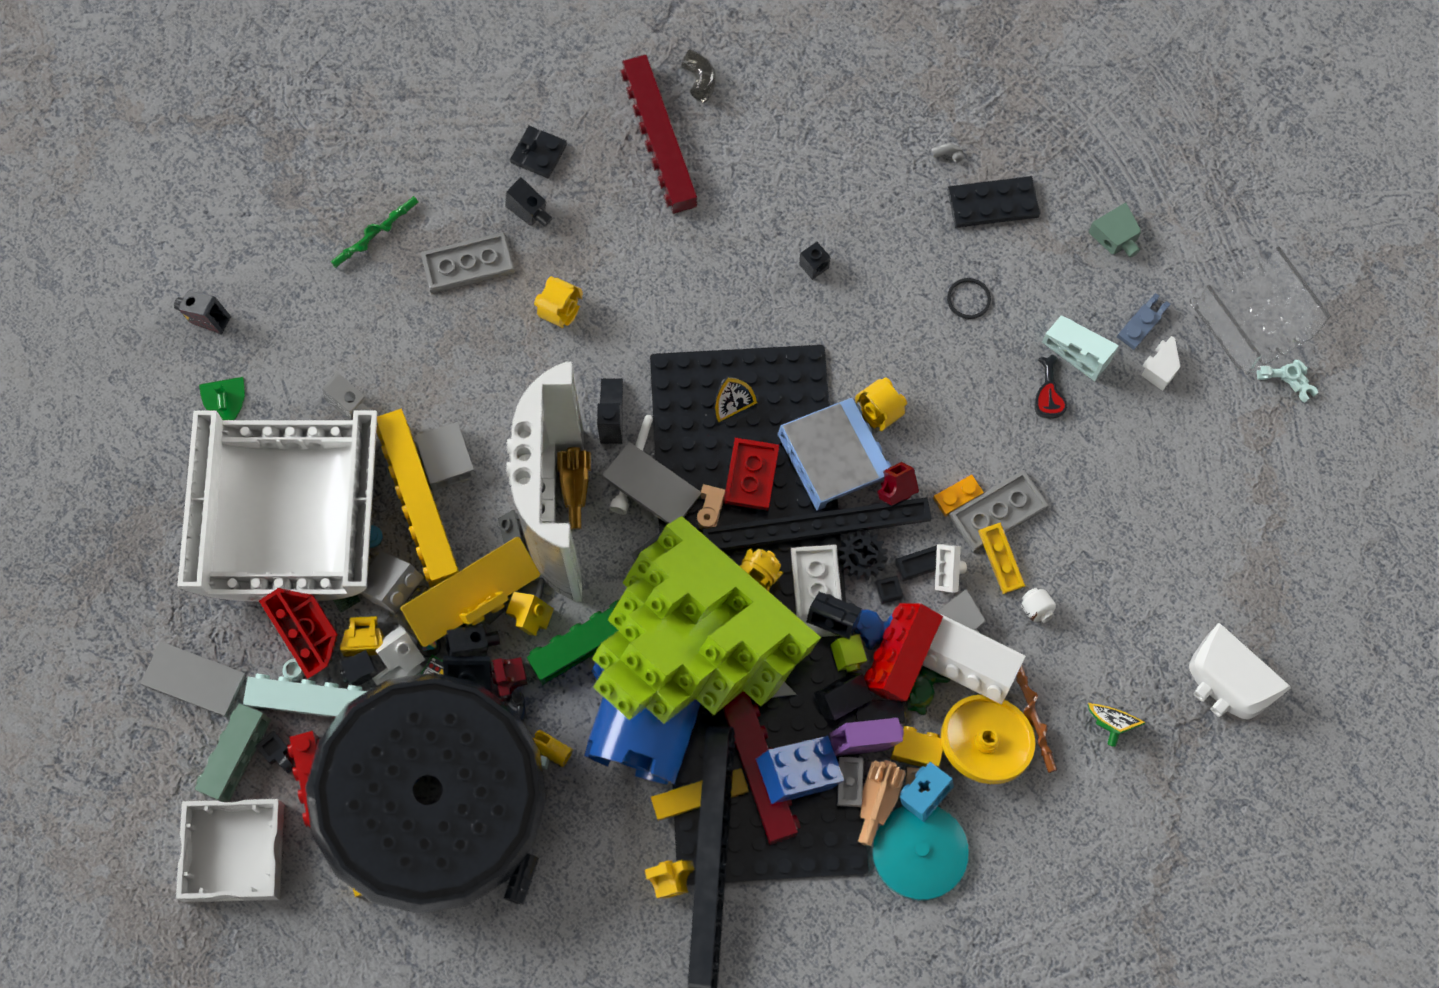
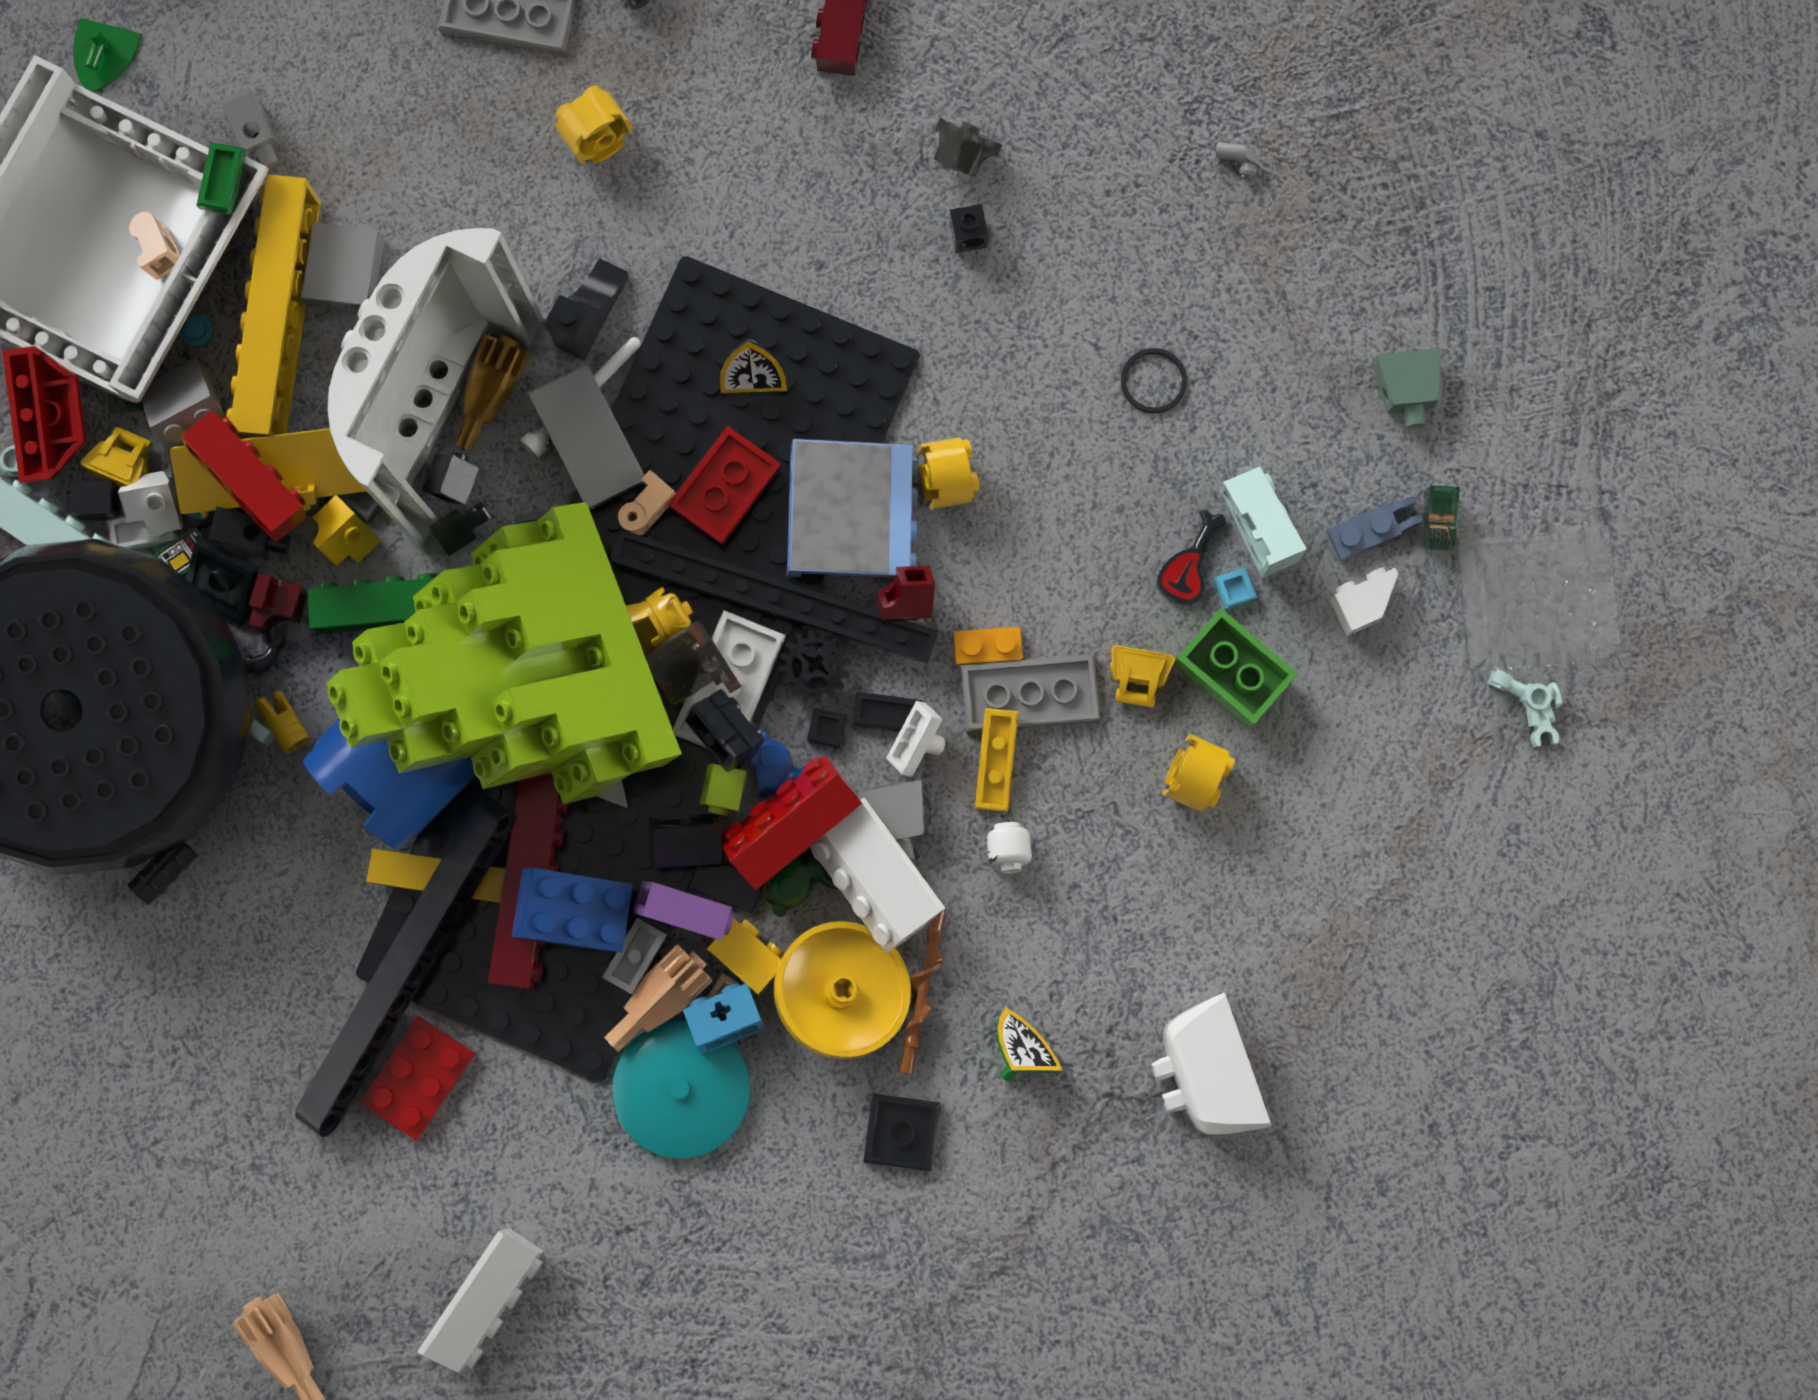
camera: 30 degrees right, 10 degrees up
(328, 498) = (156, 243): none -> light nougat leg
(352, 429) = (221, 178): none -> green tile
(459, 600) = (244, 476): none -> red brick
(585, 547) = (451, 478): none -> brick
(598, 577) = (456, 530): none -> black plate
(670, 878) = (342, 964): yellow brick -> none
(752, 928) = (417, 1078): none -> red plate
(786, 215) = (963, 146): none -> clear smoke brick
(793, 581) = (689, 663): none -> clear smoke bracket
(993, 201) = (1263, 259): black plate -> none
(1056, 464) = (1142, 669): none -> yellow piece
(1068, 810) = (901, 1132): none -> black tile
(1083, 393) = (1235, 588): none -> medium azure tile
(1112, 437) = (1235, 668): none -> bright green brick
(1125, 507) = (1197, 774): none -> yellow brick
(1177, 295) = (1440, 517): none -> clear green leg

